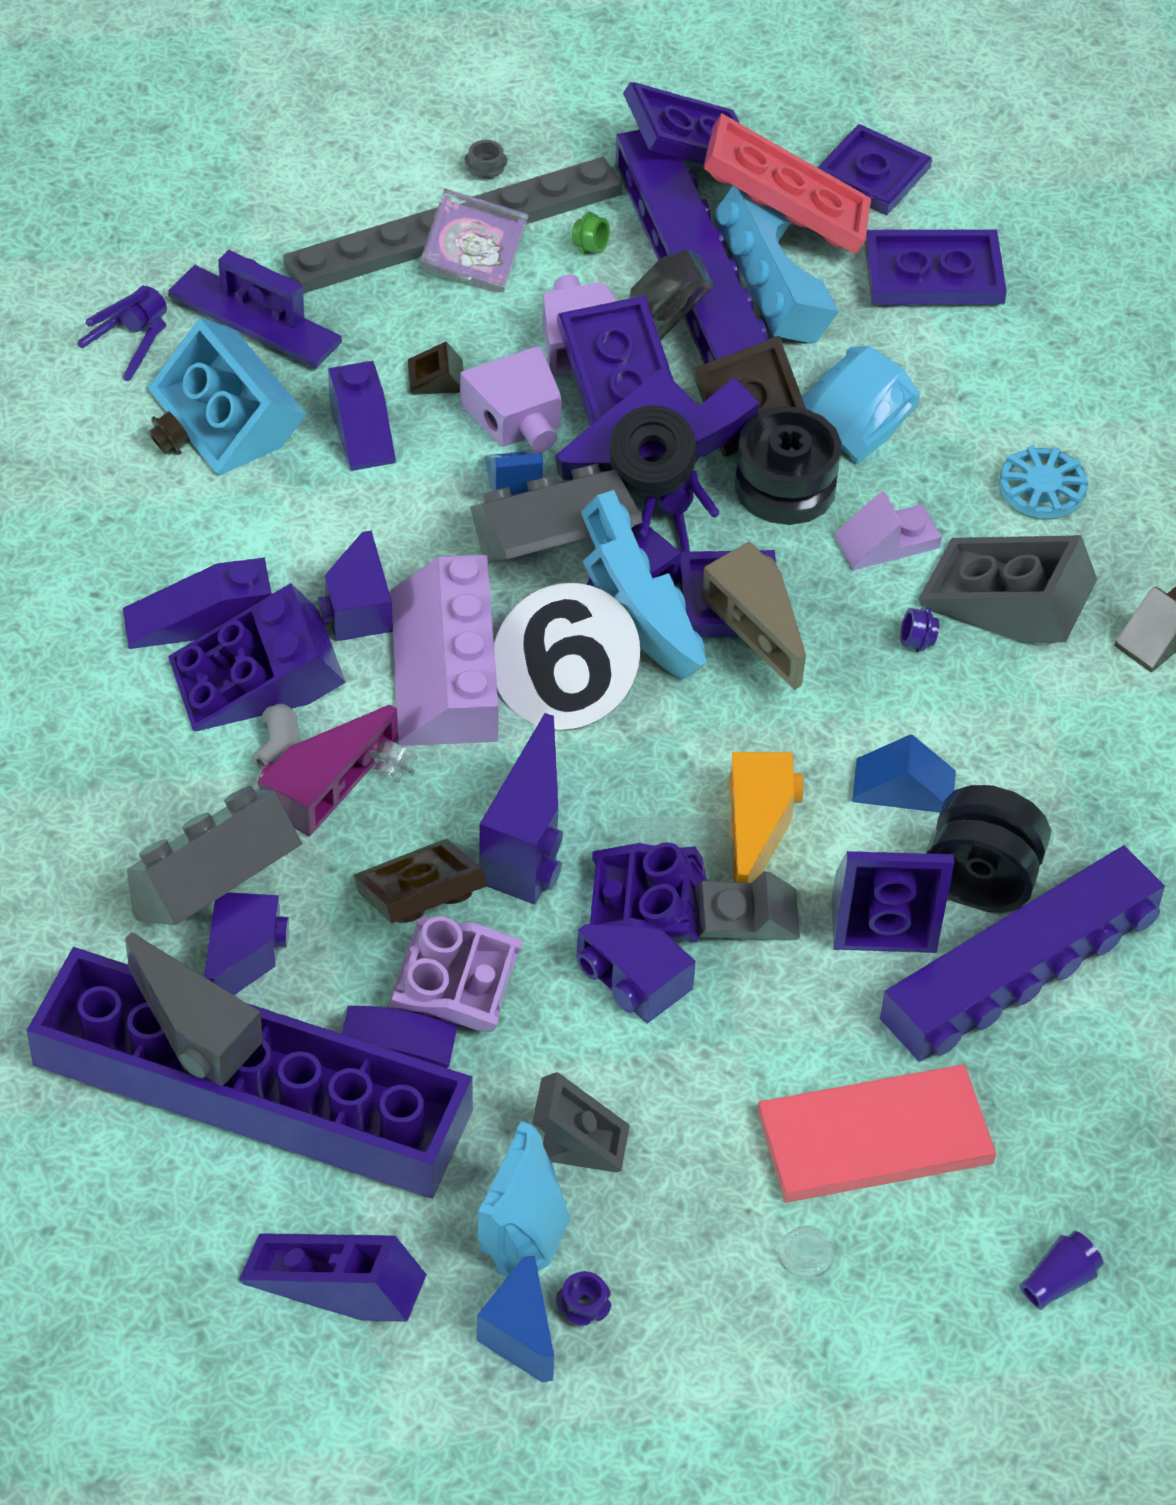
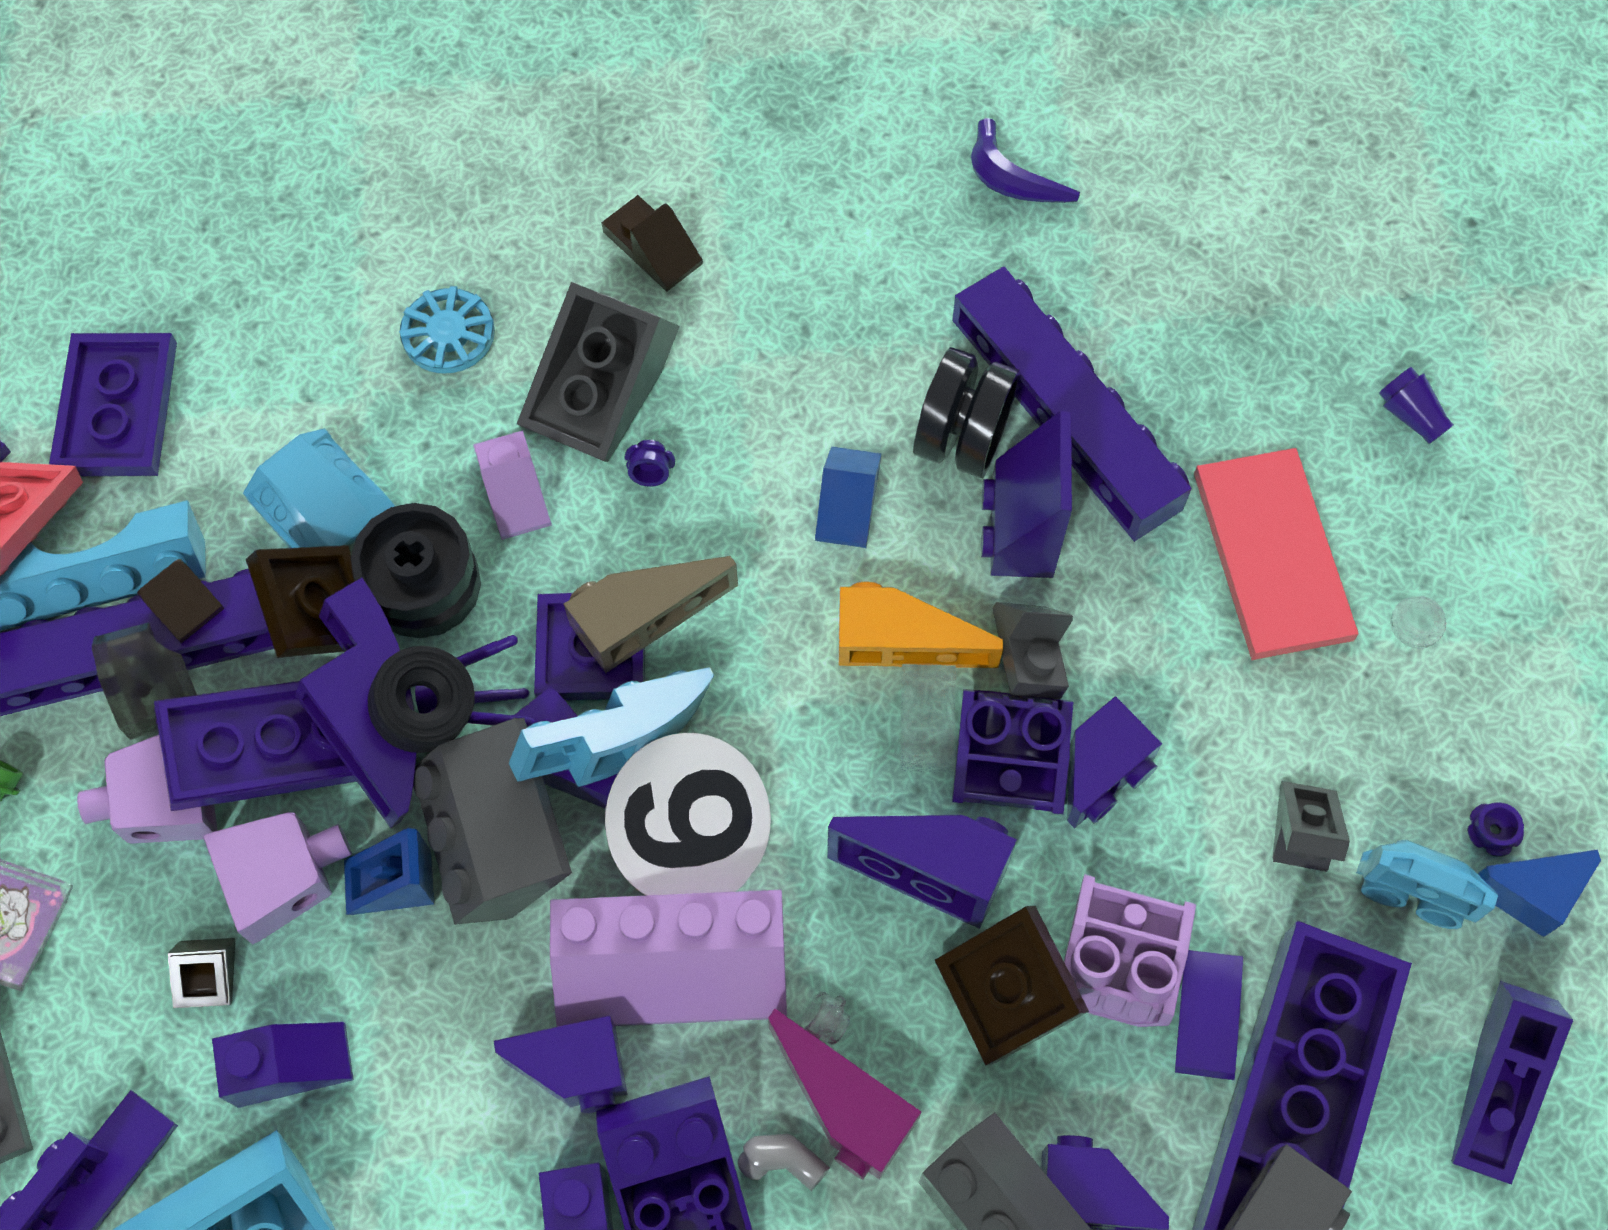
camera: 85 degrees left, 15 degrees up
(738, 305) = (180, 600): none -> dark brown slope

